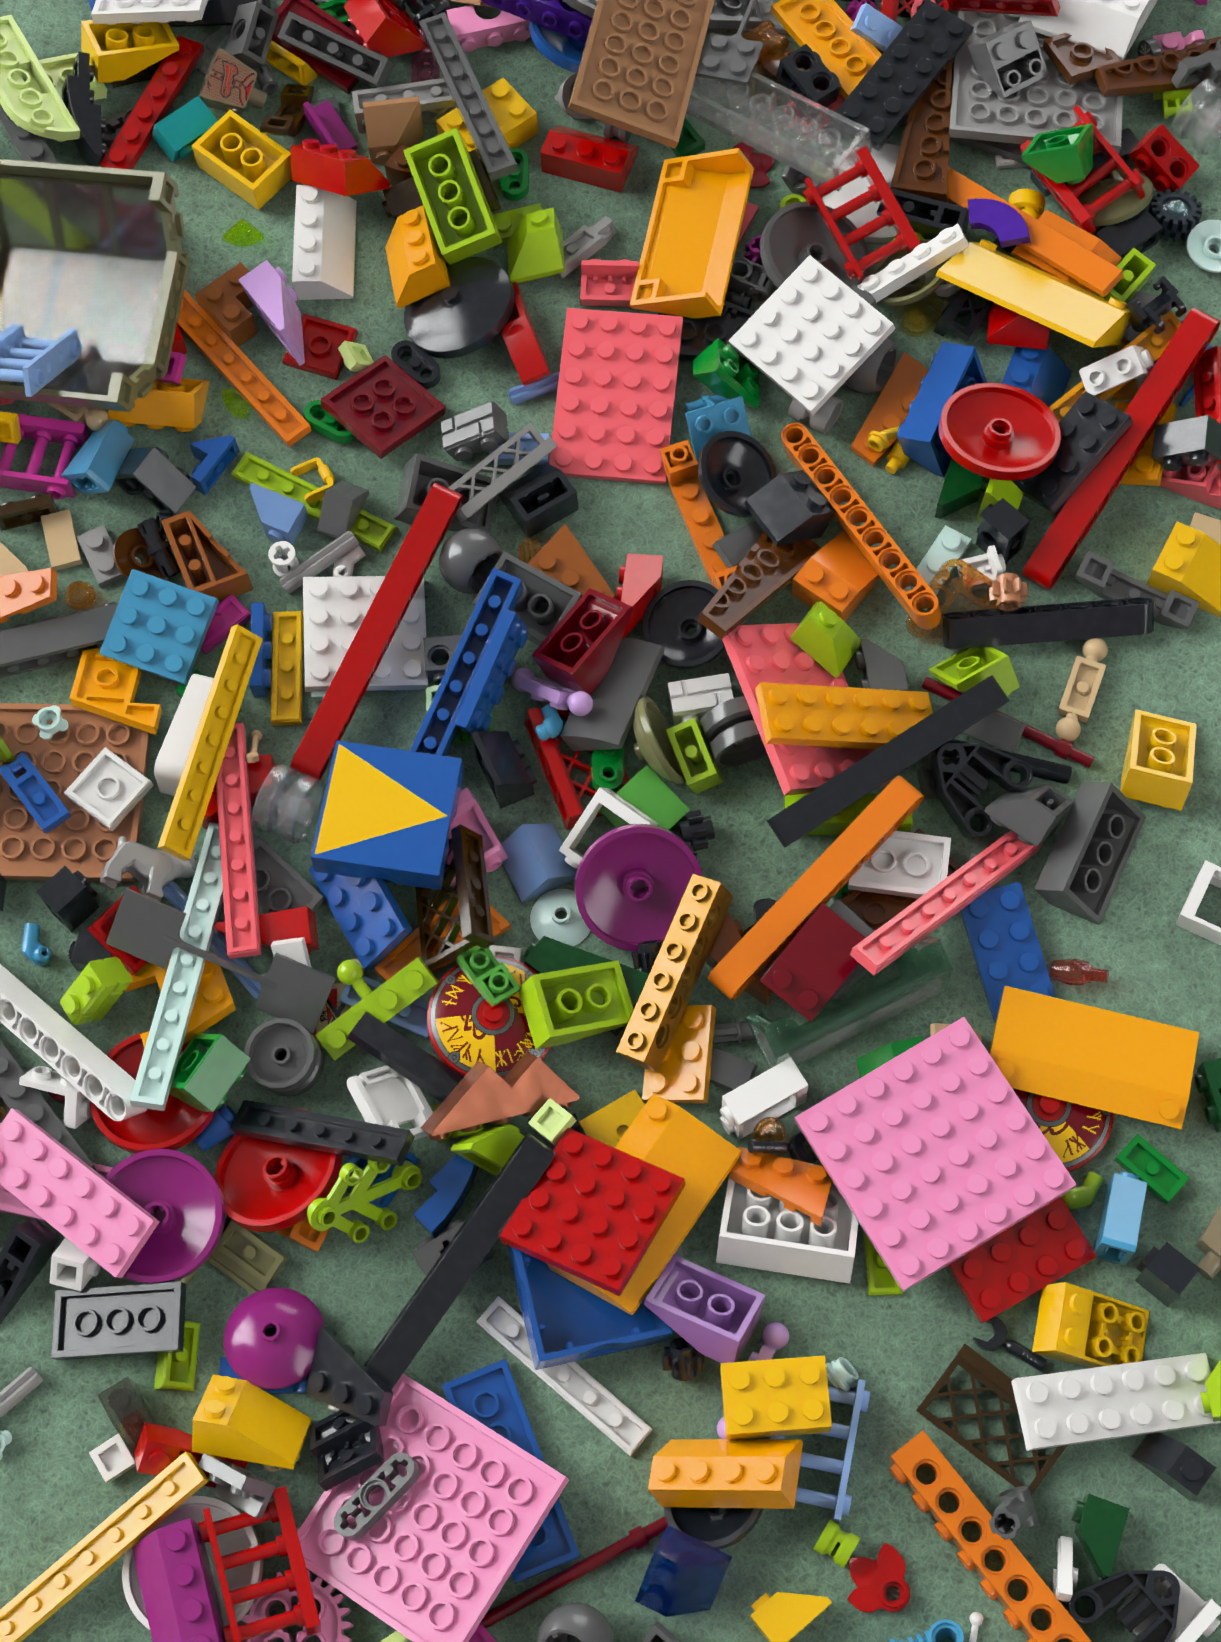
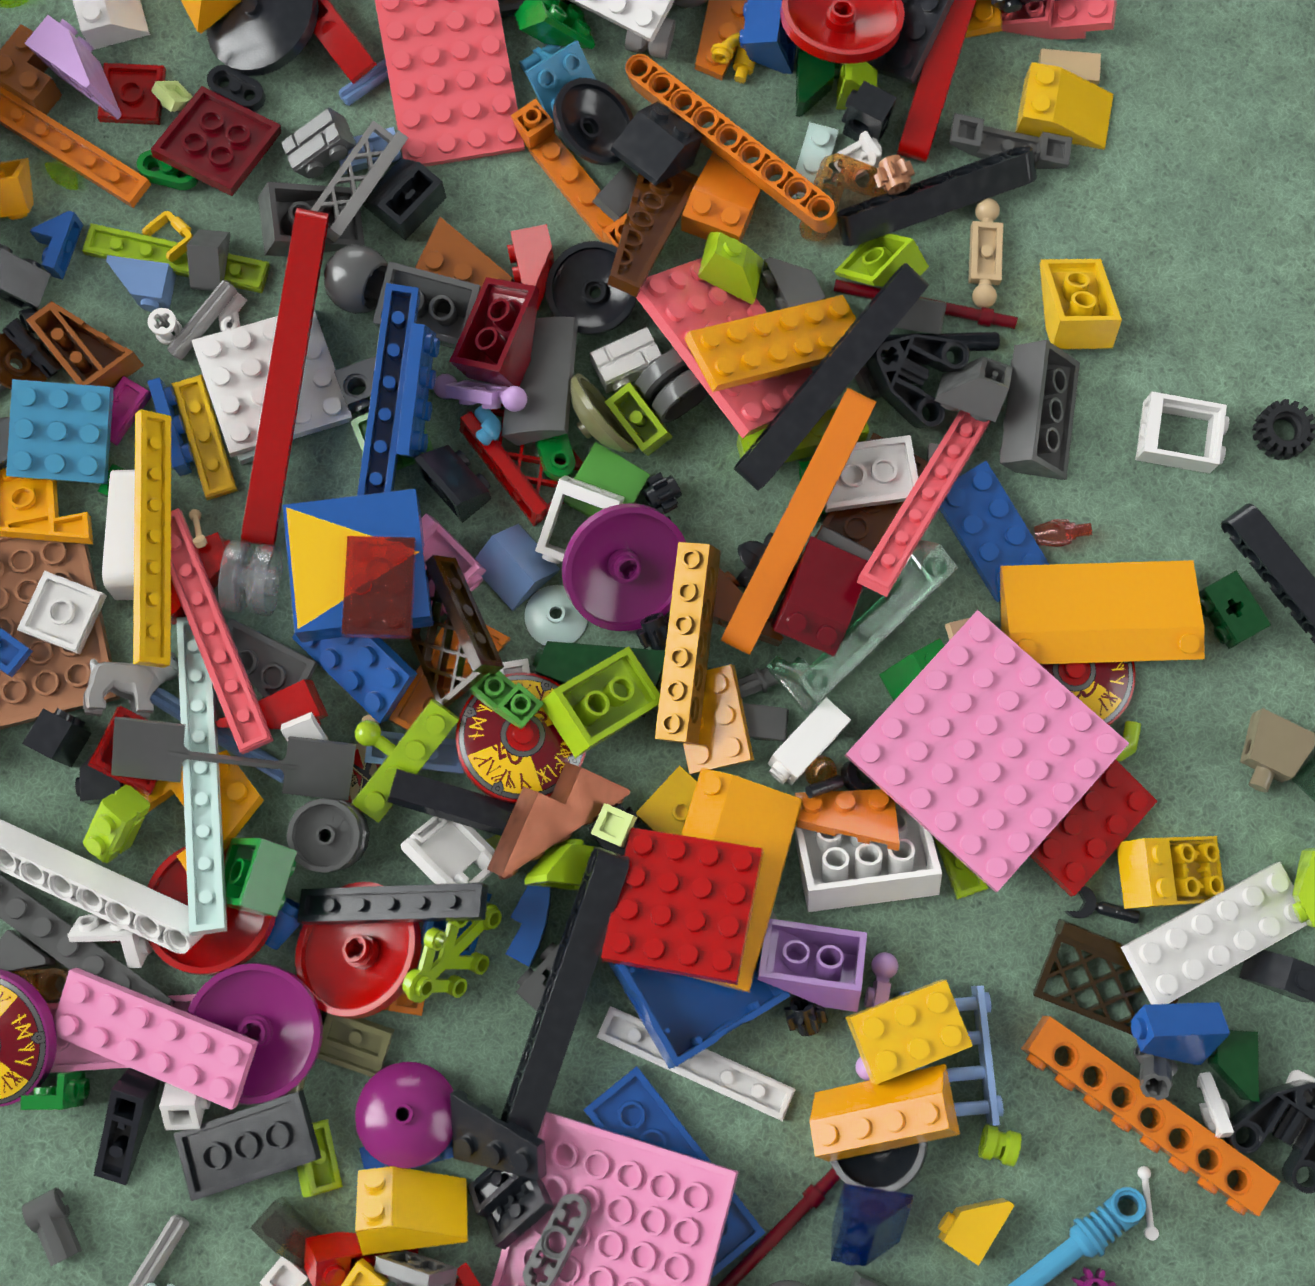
camera: 25 degrees left, 10 degrees up
(32, 947) = (37, 795): dark azure arm -> none
(400, 837) = (379, 587): none -> clear red plate
(528, 549) = (410, 252): clear orange plate -> none
(842, 1374) = (959, 982): light aqua plate -> none
(874, 1578) = (1042, 1165): red plate -> none
(1045, 1479) = (1180, 1030): none -> blue slope
(1120, 1218) = (1171, 759): slope -> none
(1152, 1167) = (1183, 702): green plate -> none
(1165, 1273) = (1229, 800): black brick -> none

